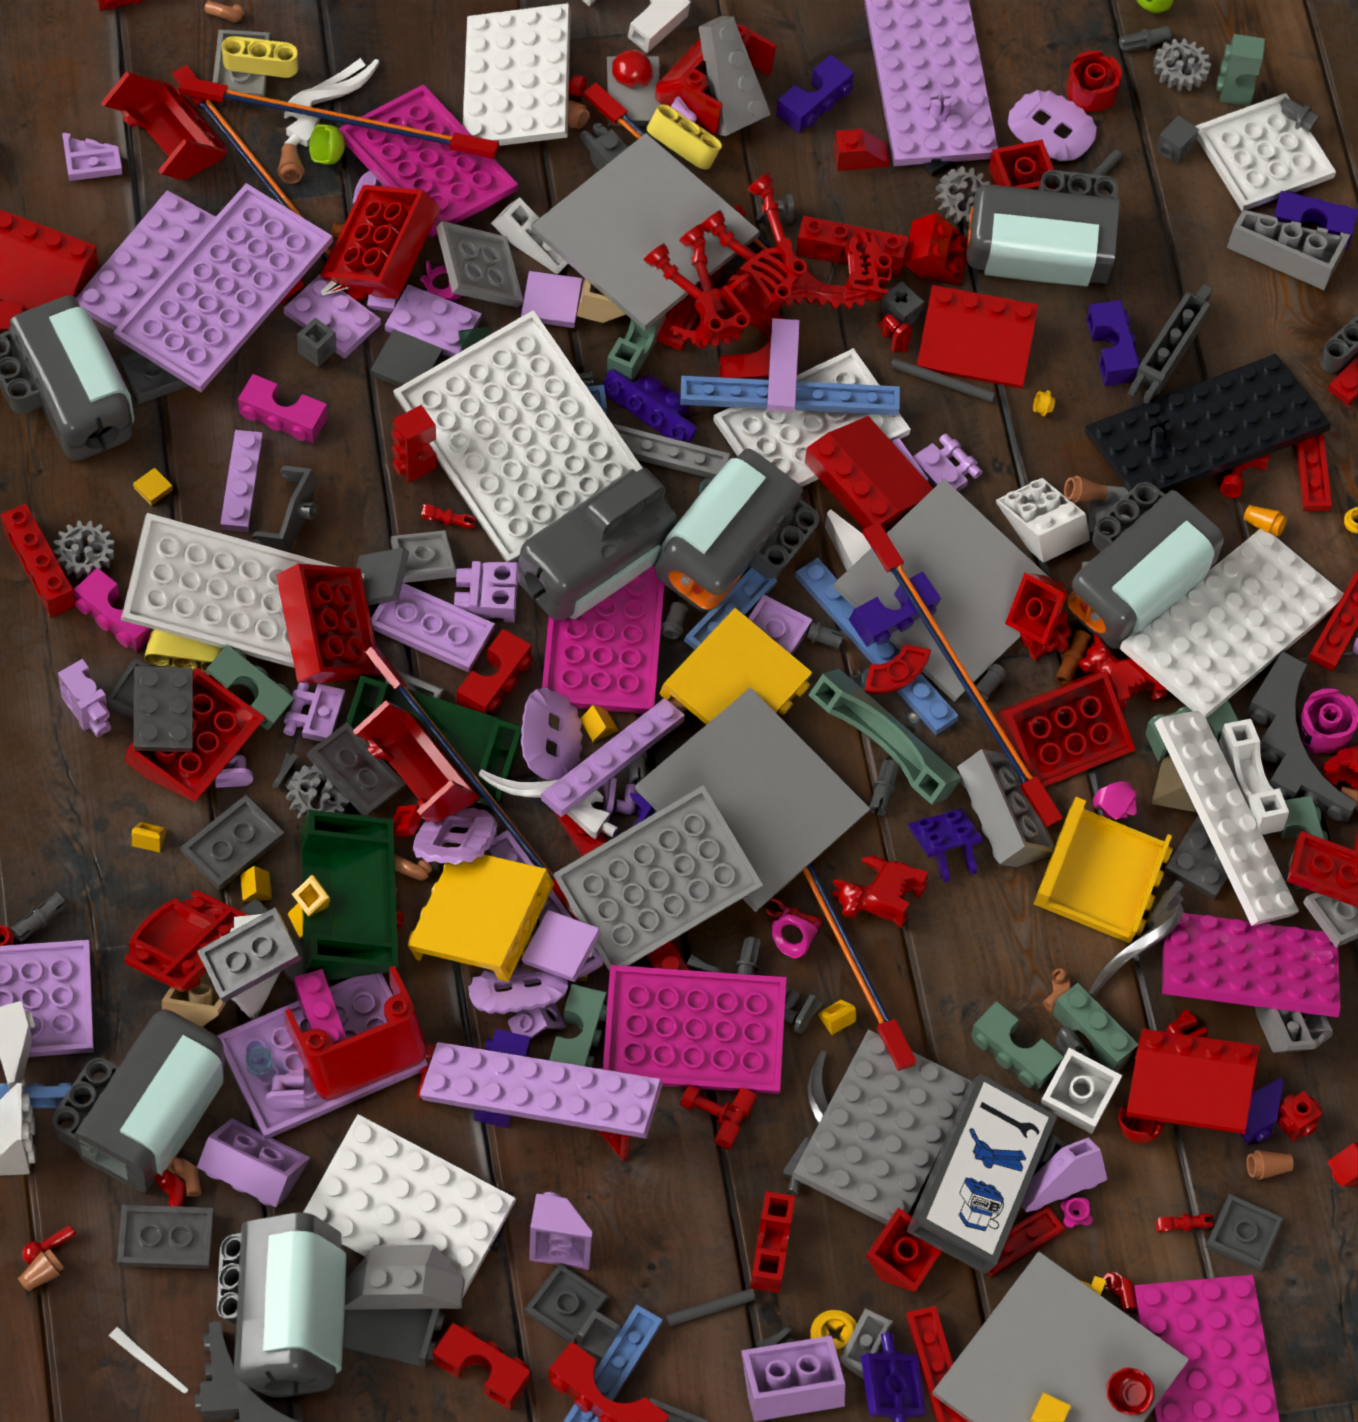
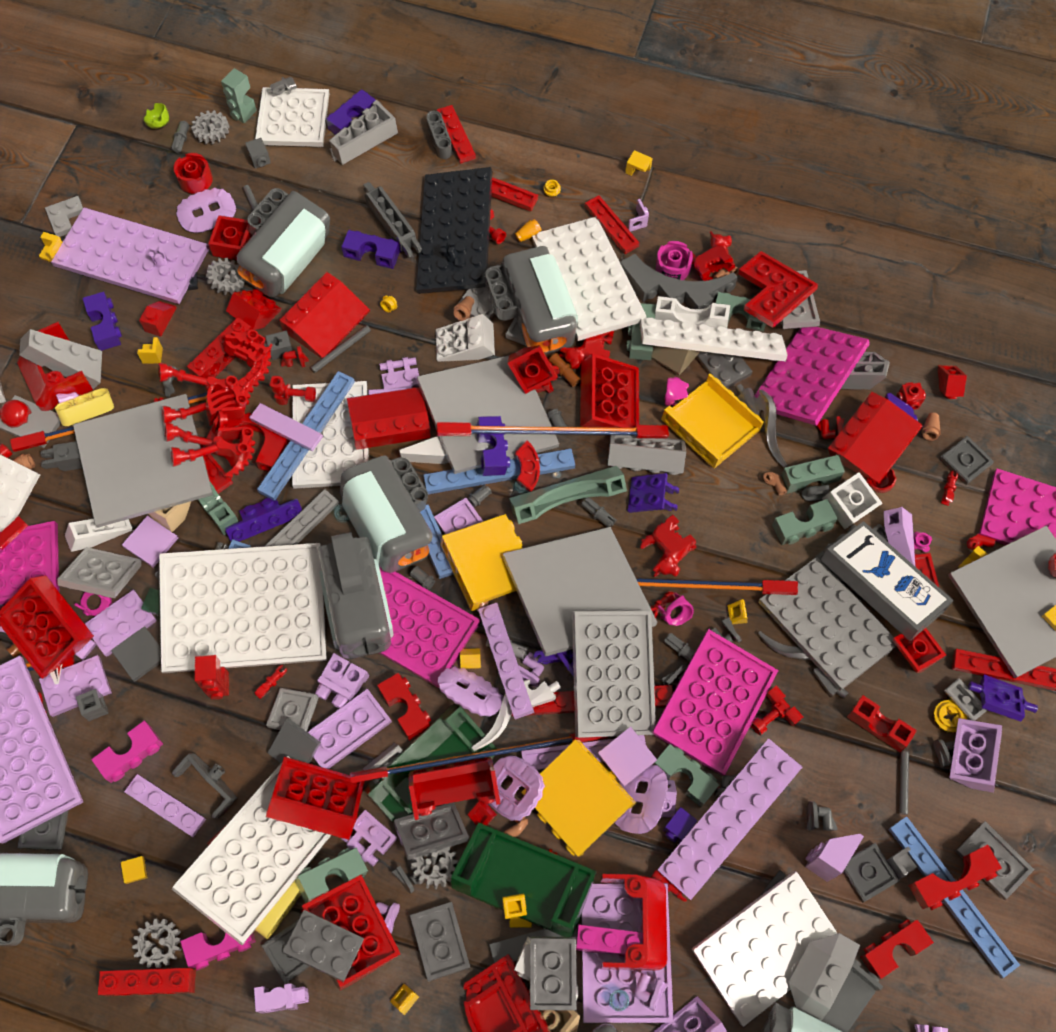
camera: 60 degrees left, 5 degrees up
(255, 884) = (479, 940): yellow slope -> none
(617, 1224) = (814, 811): none -> dark grey piece
(805, 170) = (151, 352): none -> yellow panel
(835, 345) = (283, 392): none -> red bar

